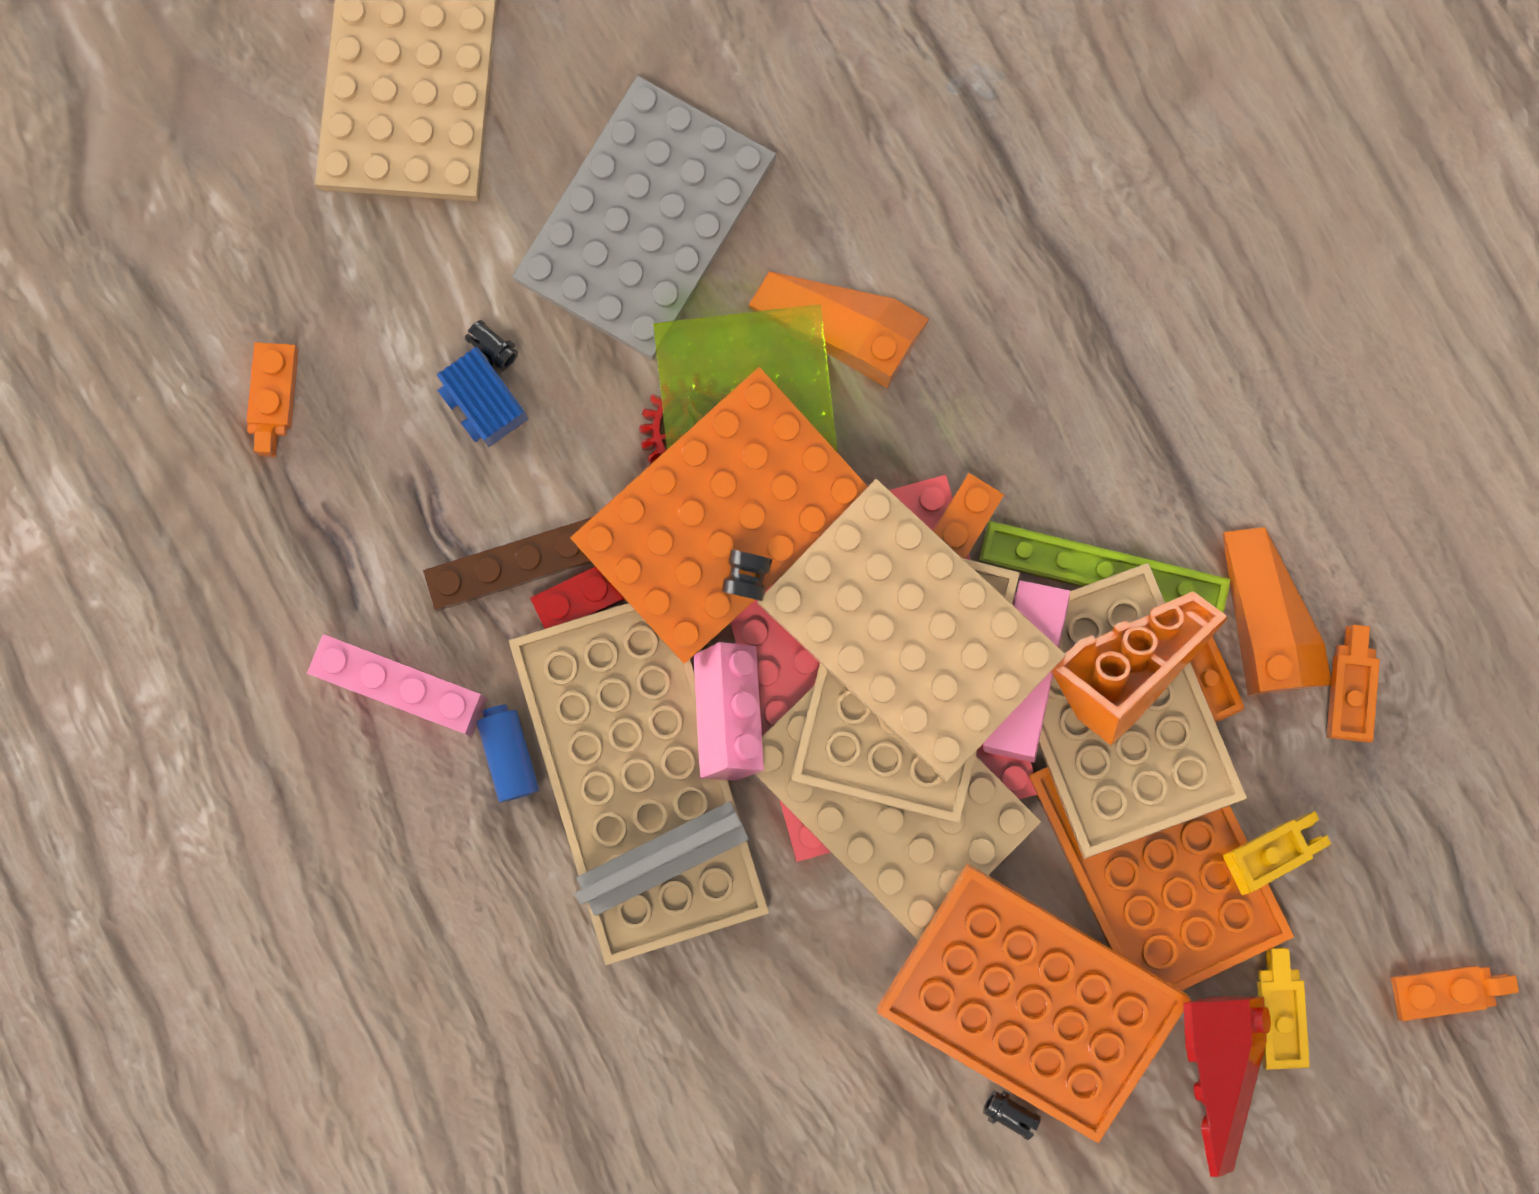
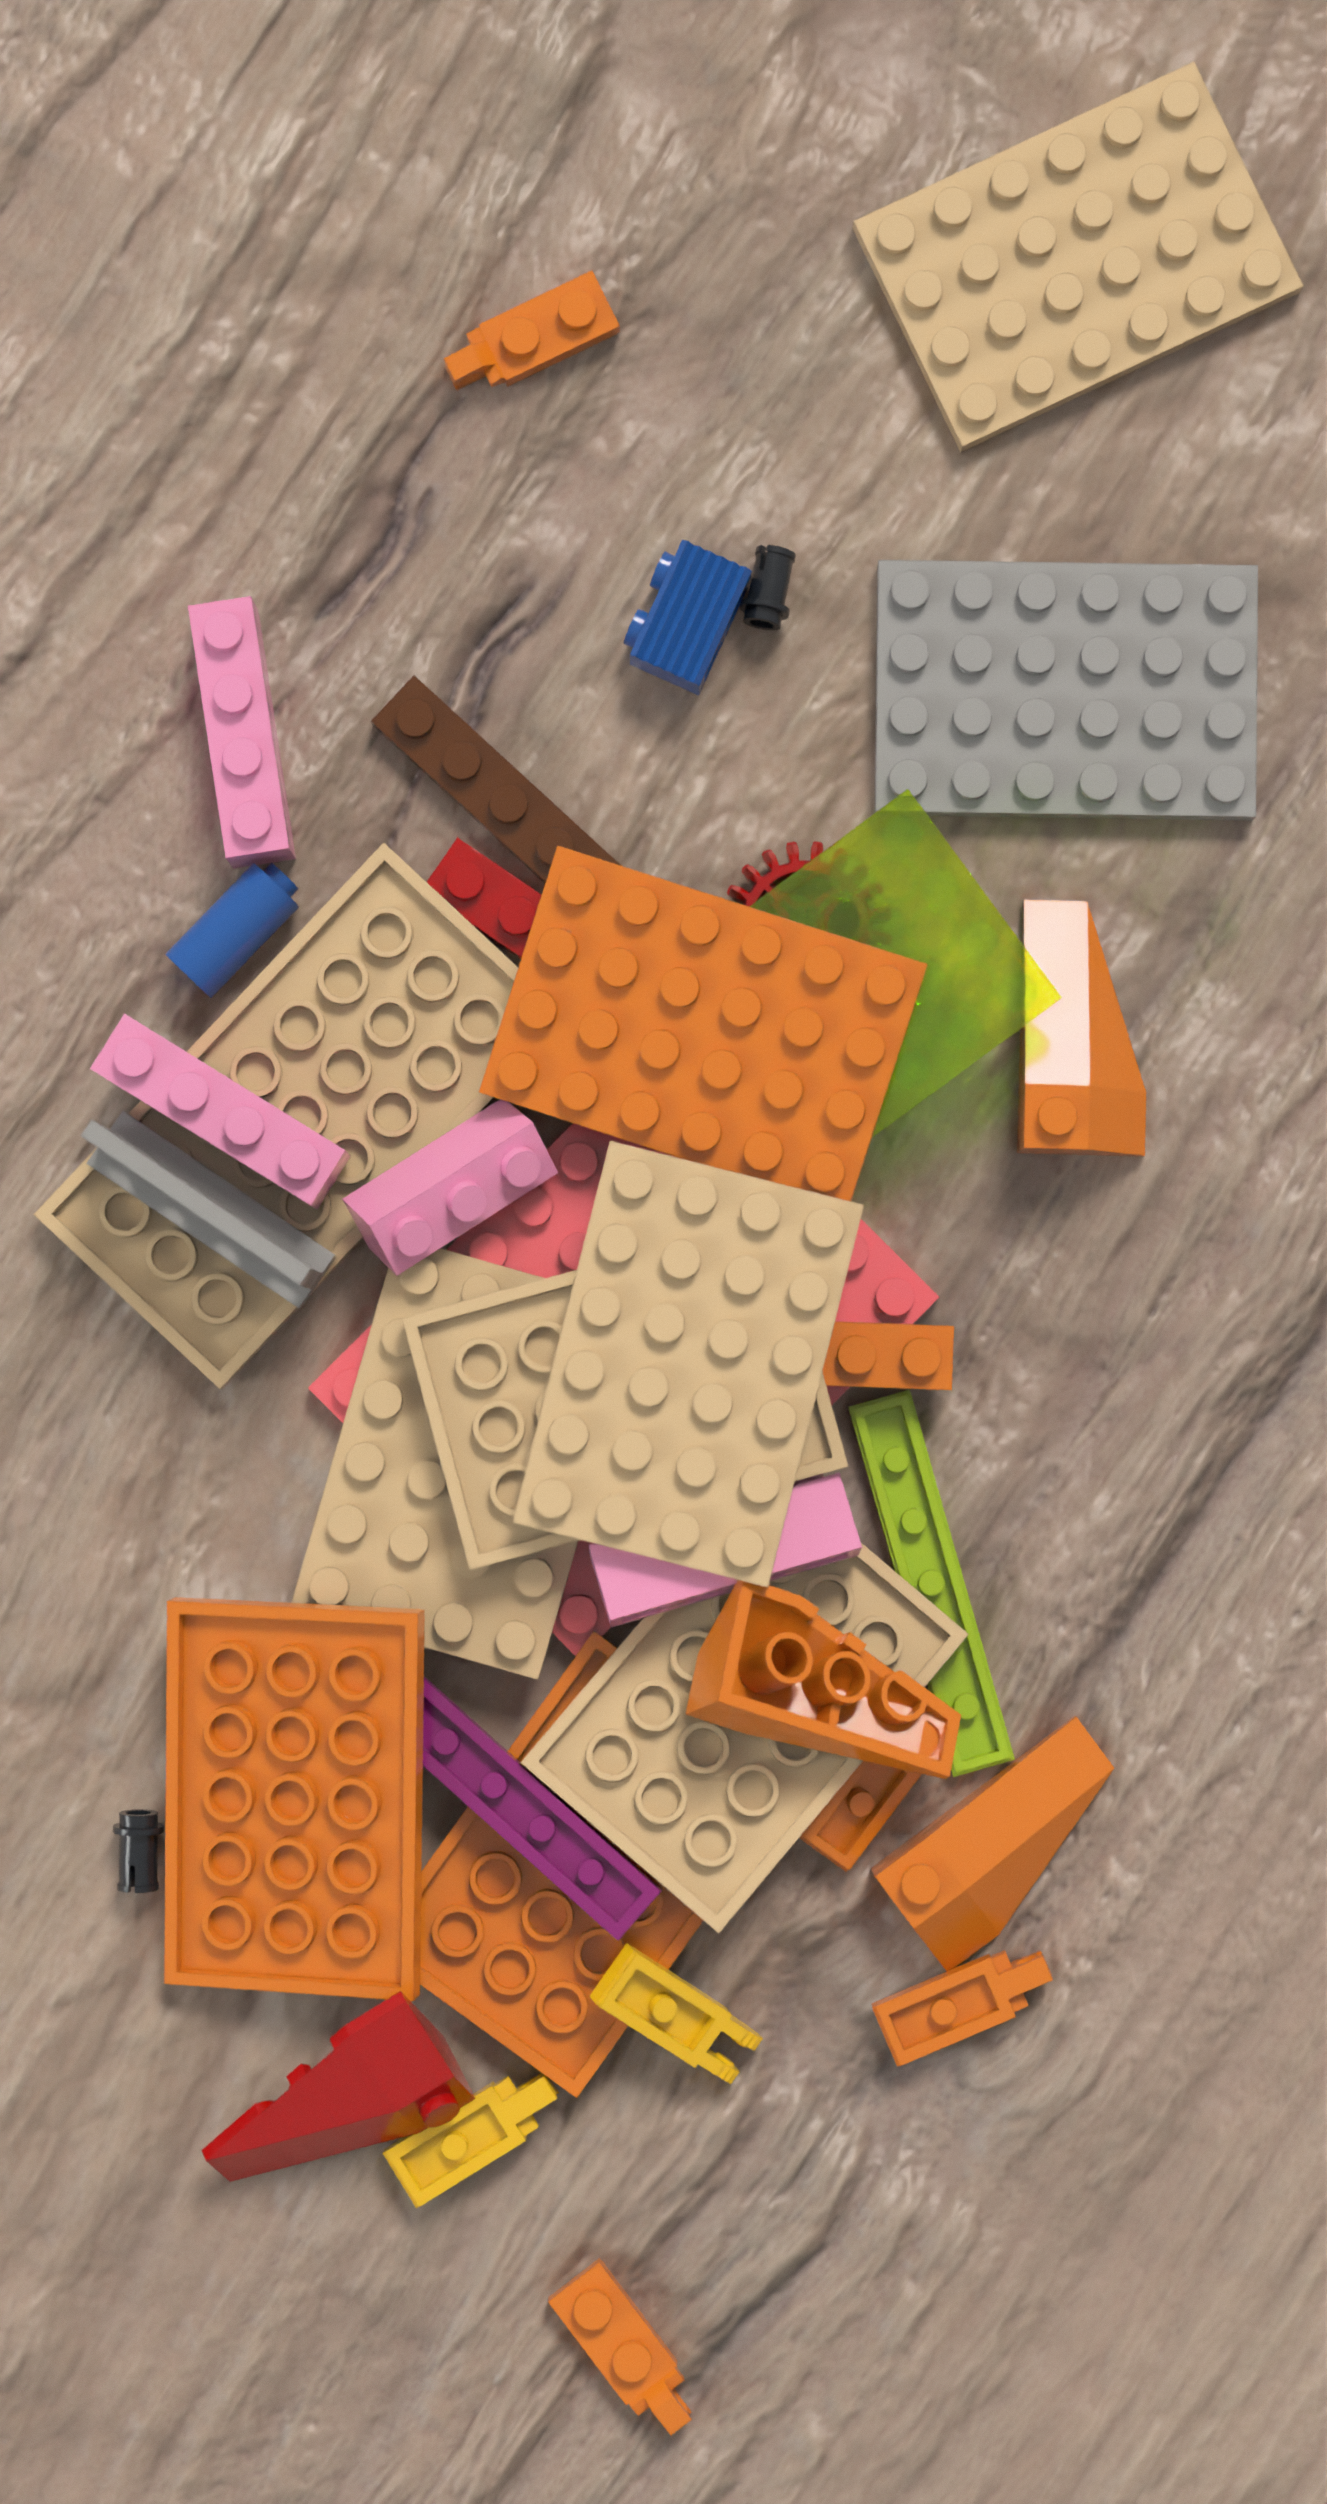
camera: 60 degrees right, 5 degrees up
(609, 819) = (220, 1111): none -> bright pink brick
(743, 584) = (621, 1111): black wheel -> none
(1121, 869) = (532, 1817): none -> magenta plate

